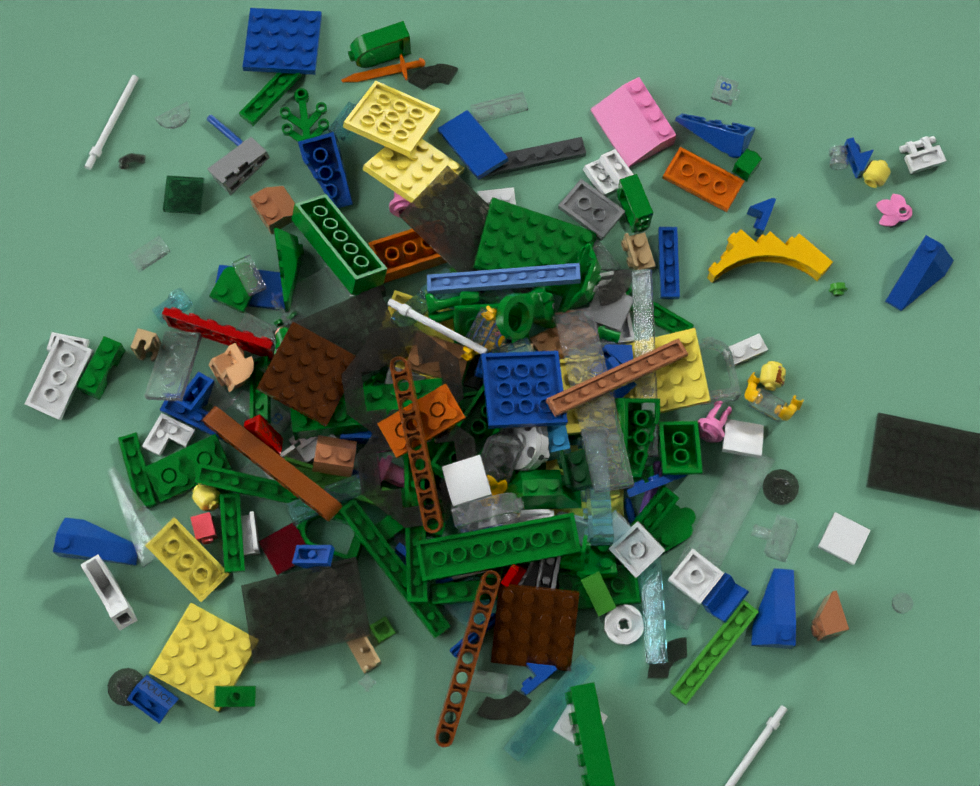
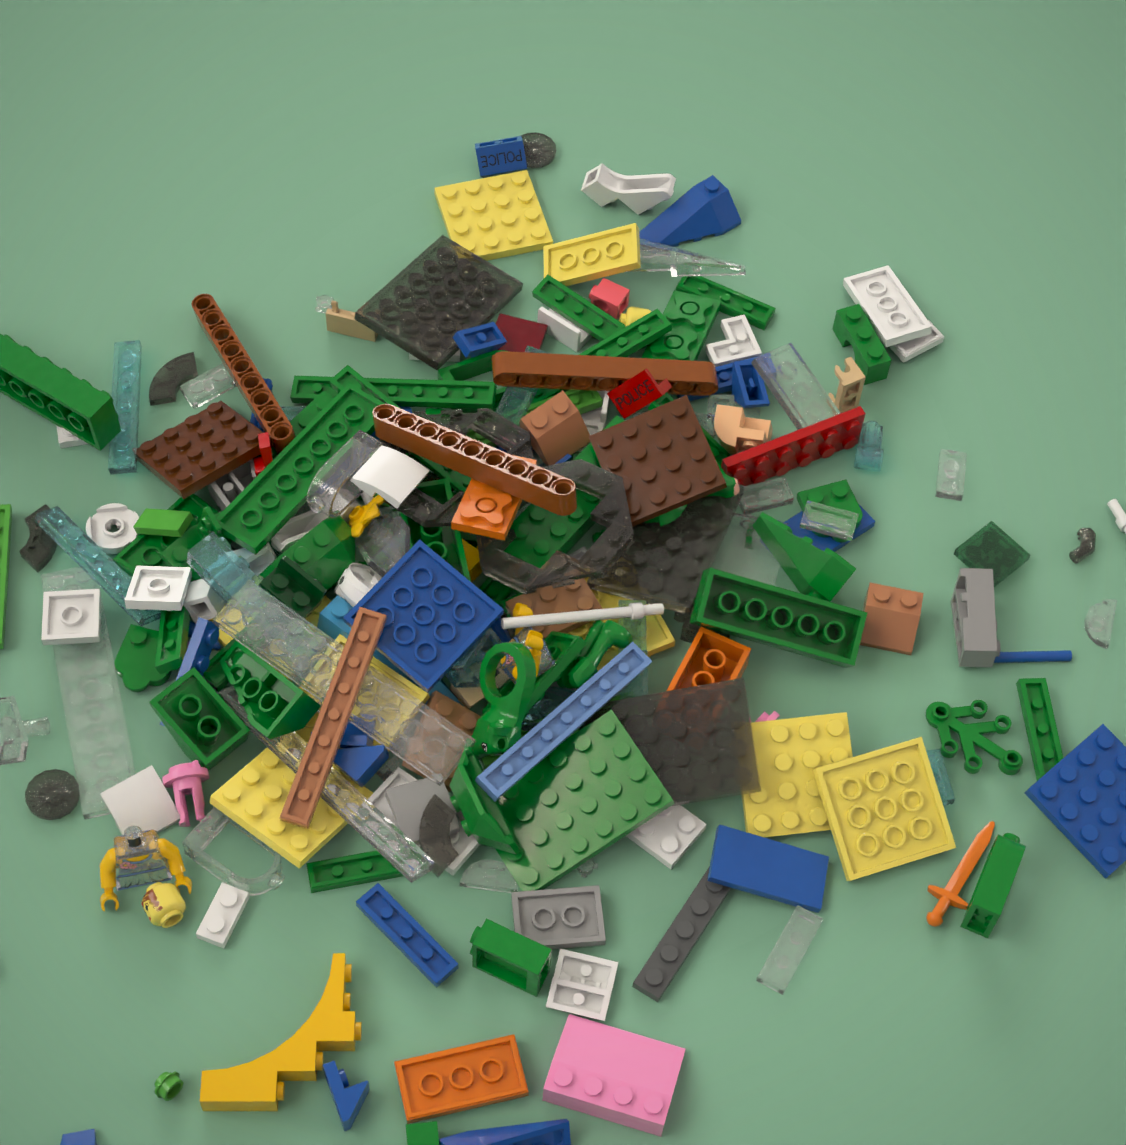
camera: 135 degrees right, 15 degrees down
(234, 696) = (431, 204): green plate -> none
(326, 164) = (894, 708): blue wedge -> none
(382, 630) = (354, 352): bright green tile -> none
(433, 74) = (906, 921): clear smoke tile -> none
(541, 674) = (161, 416): blue slope -> none
(608, 334) = (399, 777): green pin -> none
(638, 252) = (454, 915): tan bracket -> none
(724, 598) = (22, 630): blue panel -> none

